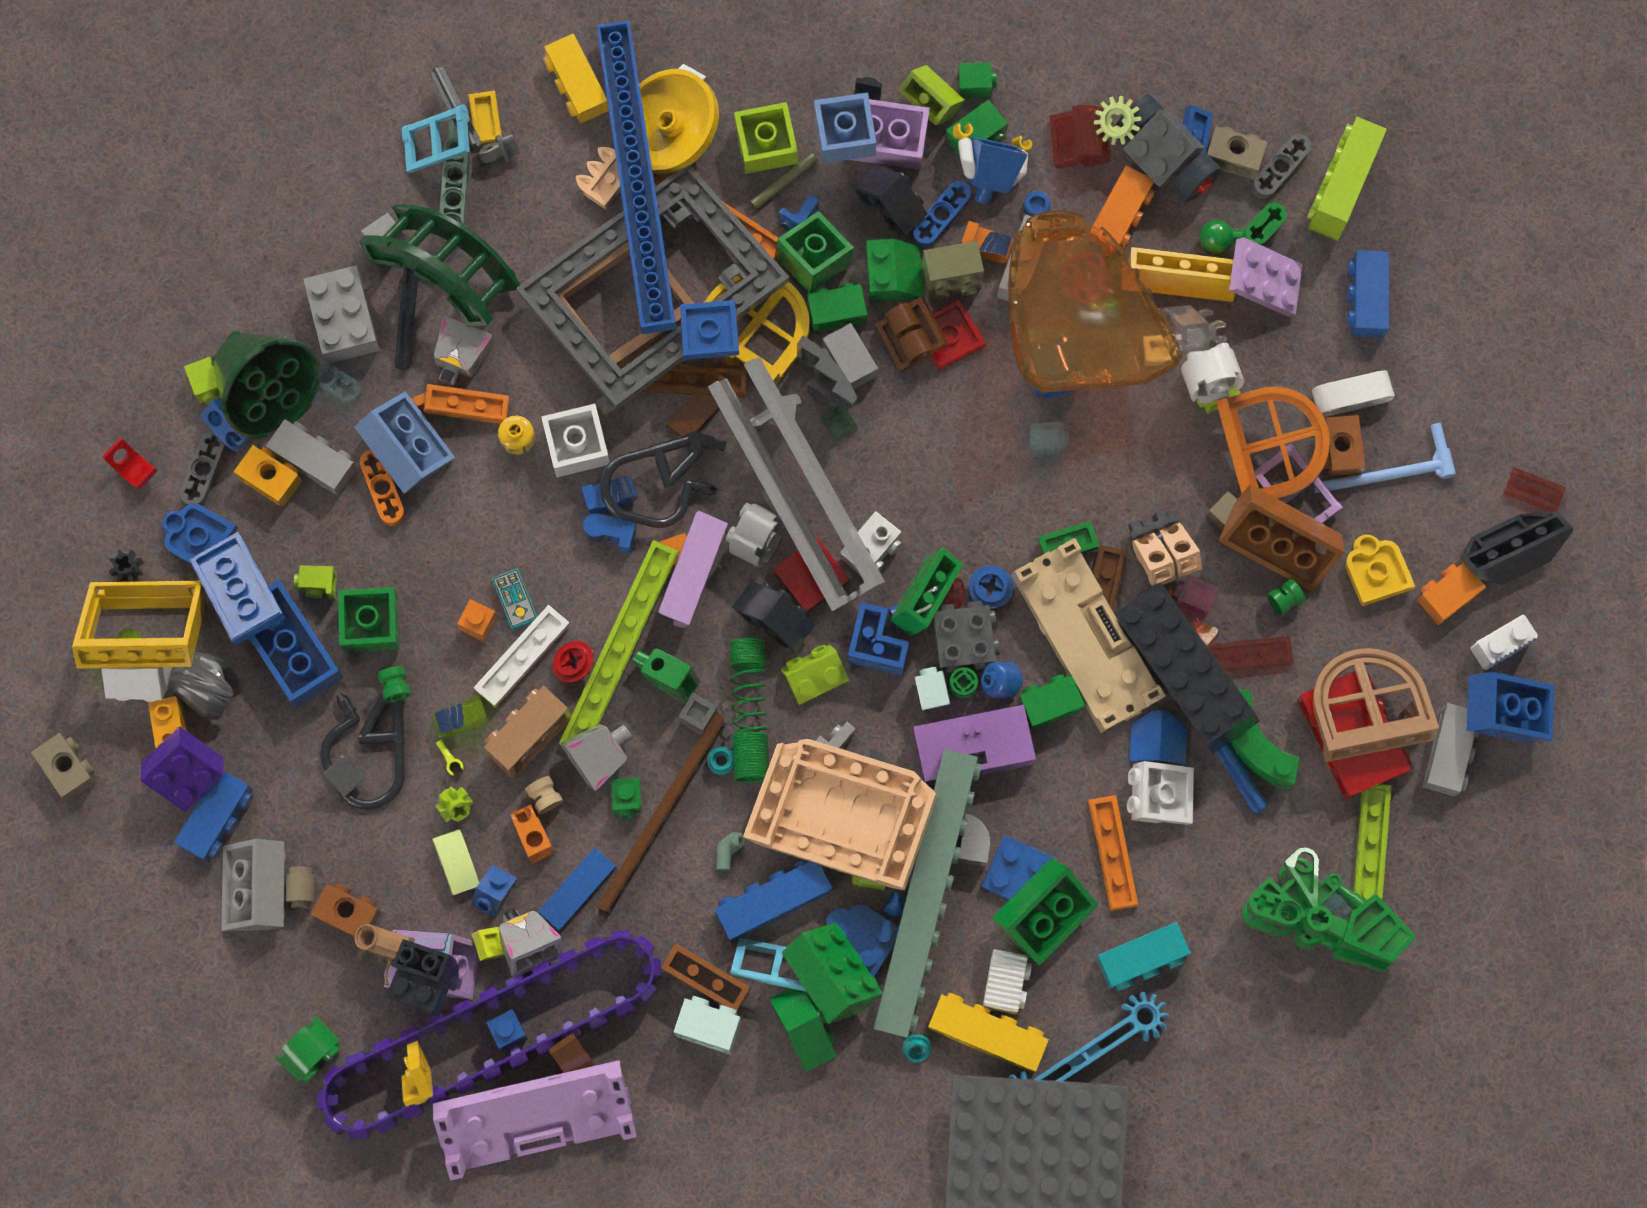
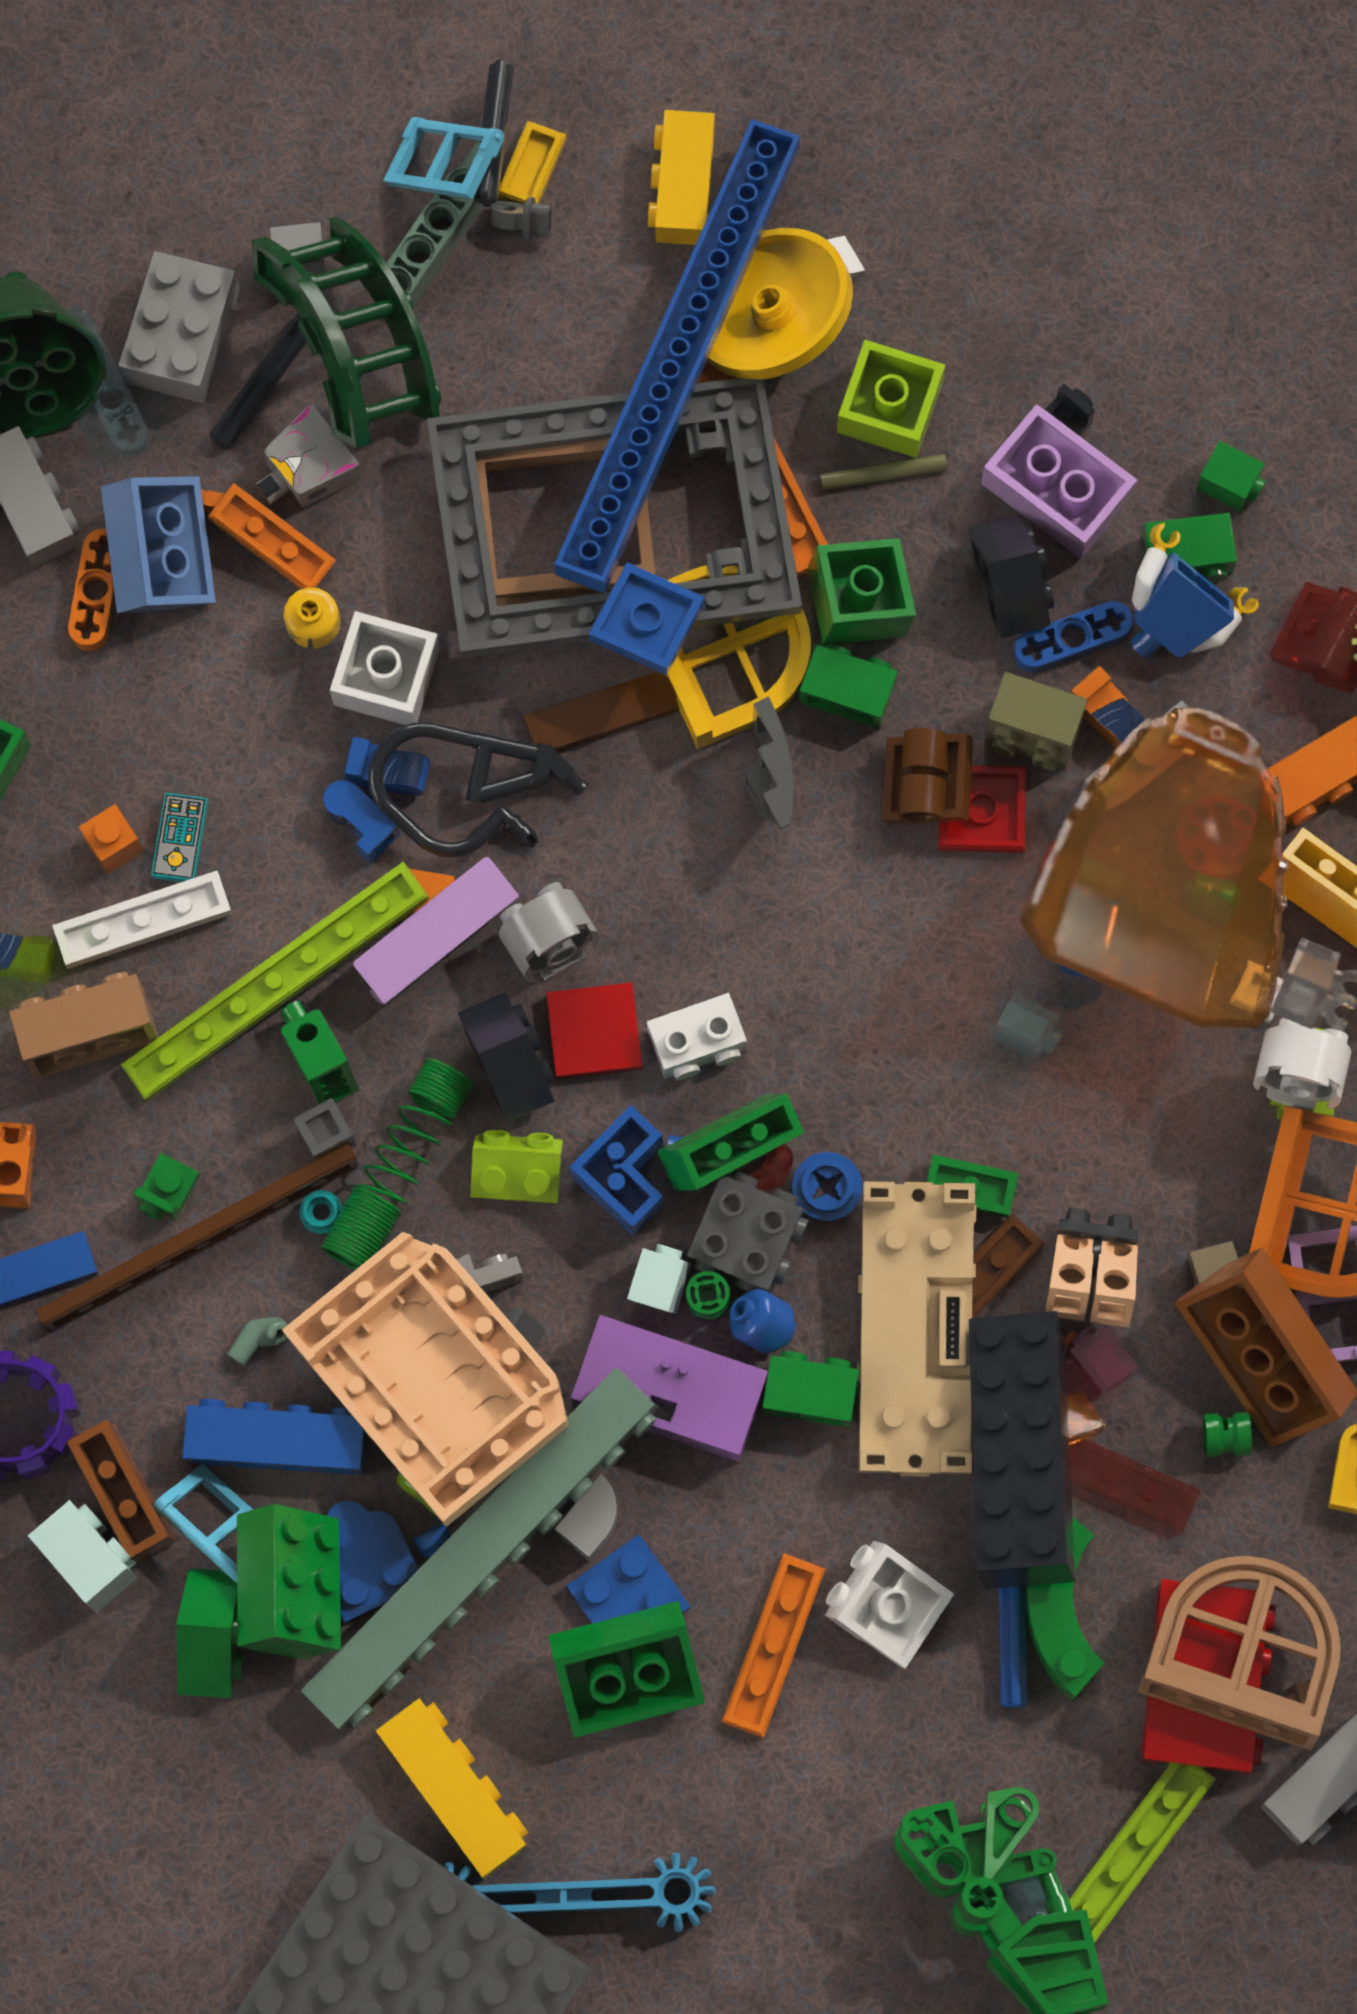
camera: 35 degrees right, 0 degrees up
(544, 795) = (58, 1122): tan wheel -> none
(564, 659) = (196, 956): red gear -> none
(597, 753) = (161, 1106): light grey torso -> none
(606, 183) = (630, 343): light nougat plate -> none
(696, 379) = (605, 683): reddish brown tile -> none
(783, 411) = (674, 787): light grey piece -> none
(789, 221) = (891, 527): blue bracket -> none
(839, 423) = (757, 845): clear green tile -> none
(845, 128) = (997, 443): medium blue brick -> none
(850, 355) = (823, 763): light grey brick -> none
(893, 270) = (956, 677): green slope -> none
(917, 1054) = (346, 1751): teal plate -> none
(928, 90) = (1156, 457): lime brick -> none
(1006, 981) = (519, 1733): white brick -> none
(1036, 203) = (1214, 694): blue tile -> none
(1143, 957) = (726, 1810): teal brick -> none
(1158, 739) = (931, 1527): blue slope -> none

